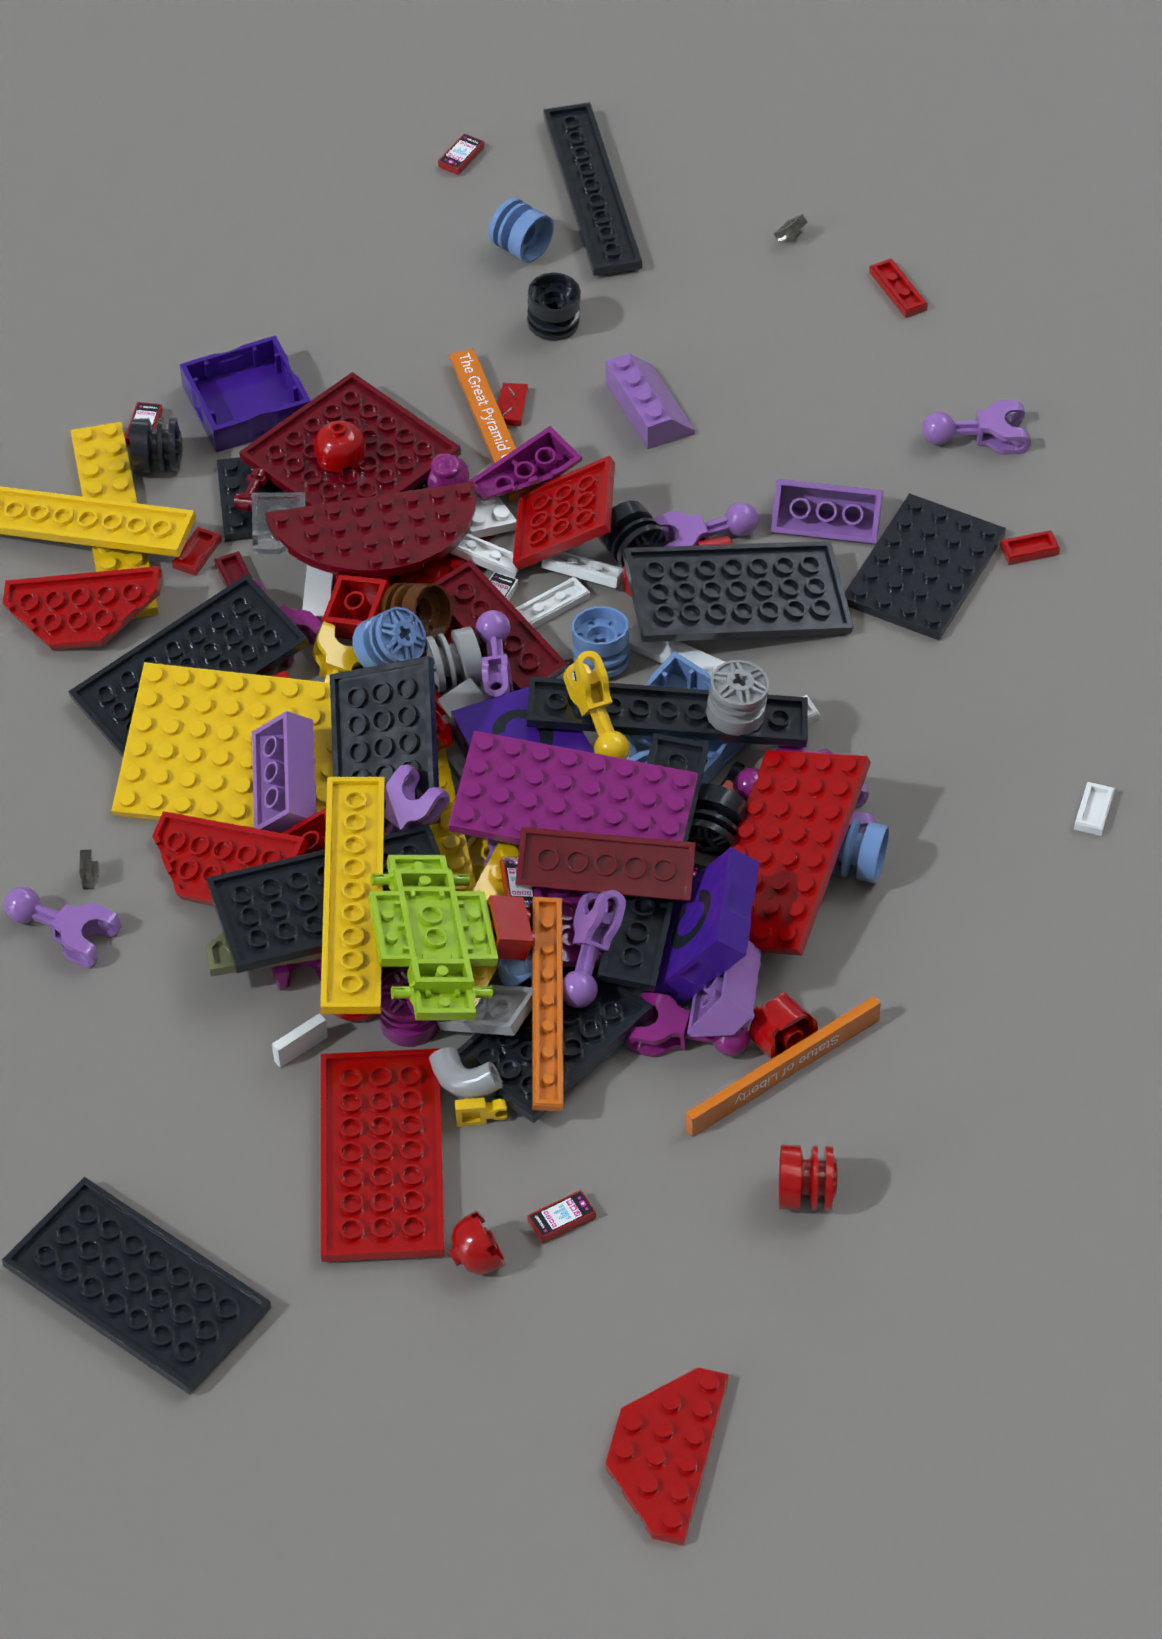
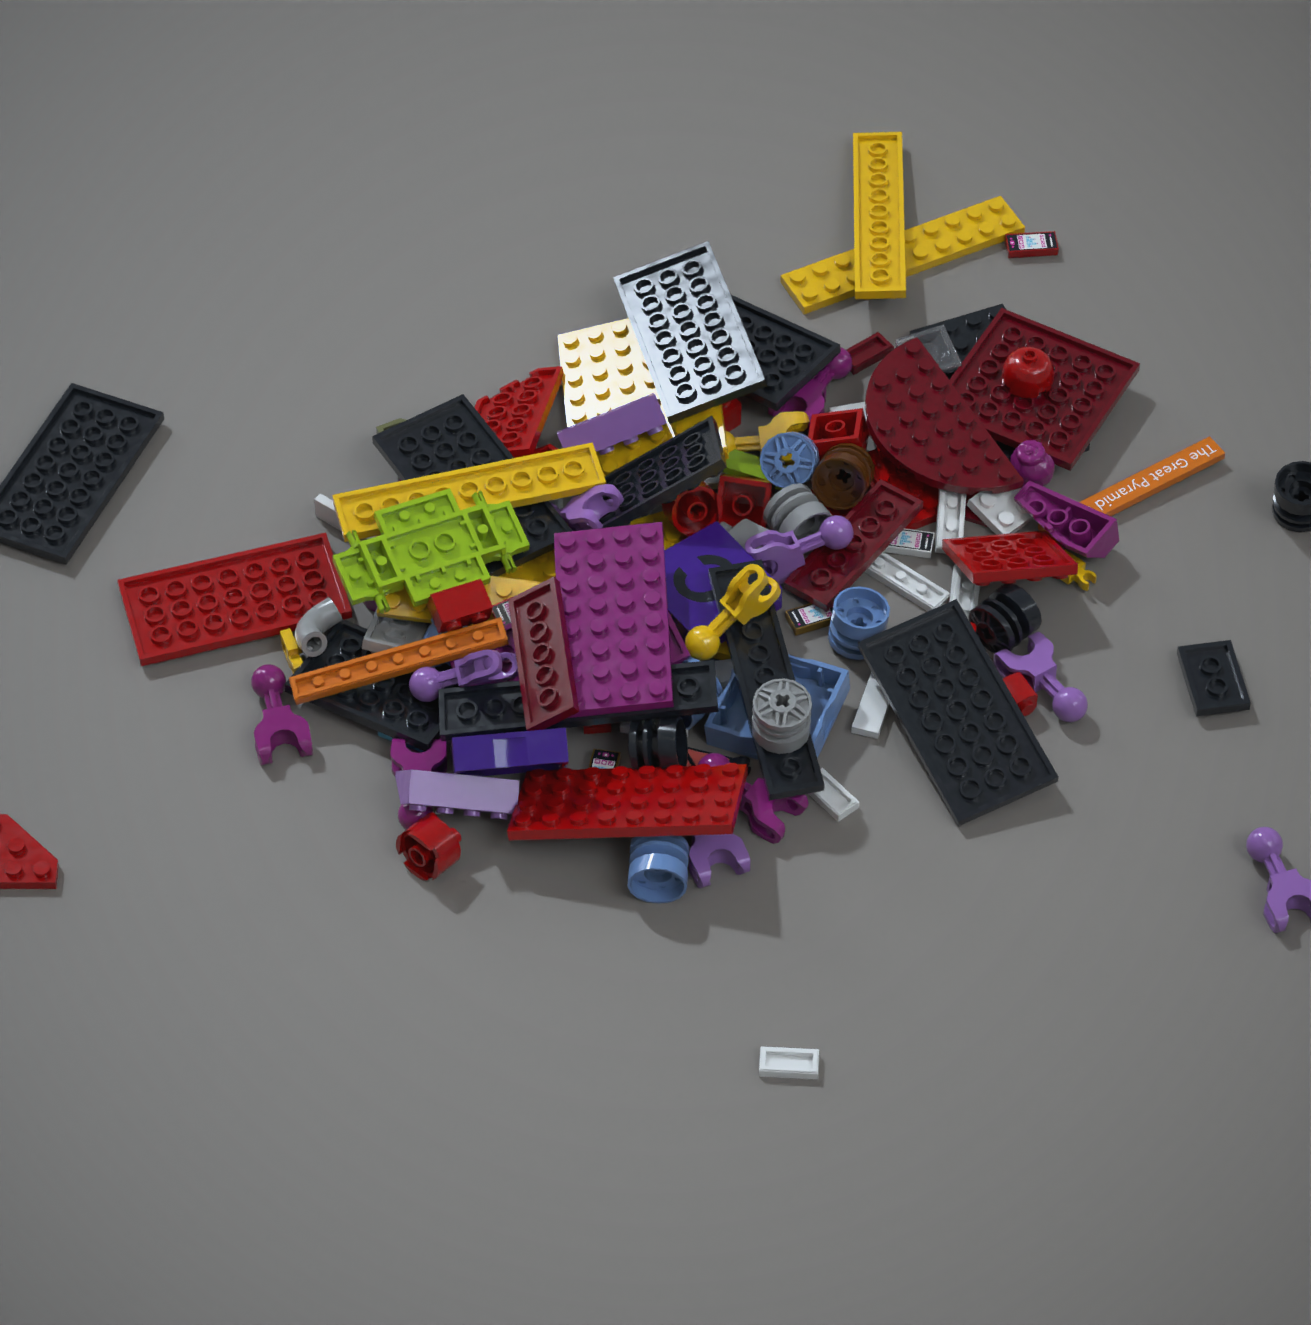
camera: 75 degrees right, 0 degrees up
(69, 926) = (420, 338): medium lavender piece -> none
(82, 606) = (780, 253): red plate -> none
(88, 869) = (485, 335): clear smoke plate -> none
(155, 445) = (991, 250): black wheel -> none
(190, 677) = (689, 332): none -> plate
(197, 551) = (886, 319): red tile -> none
(242, 392) = (1094, 298): dark purple tile -> none
(256, 480) = (975, 330): dark red bar -> none
(475, 1246) = (147, 680): red cylinder -> none
(513, 402) = (1169, 502): red tile -> none
(561, 1216) = (198, 737): tile -> none
(574, 1137) = (278, 722): none -> magenta piece
(646, 400) = (1211, 601): medium lavender slope -> none
(735, 419) = (1213, 678): none -> black plate
(782, 1066) = (397, 862): orange tile -> none
(806, 1177) = (262, 892): red wheel -> none
(827, 511) = (1113, 772): medium lavender slope -> none
(924, 566) = (1071, 870): black plate -> none
(1030, 547) = (1131, 956): red tile -> none

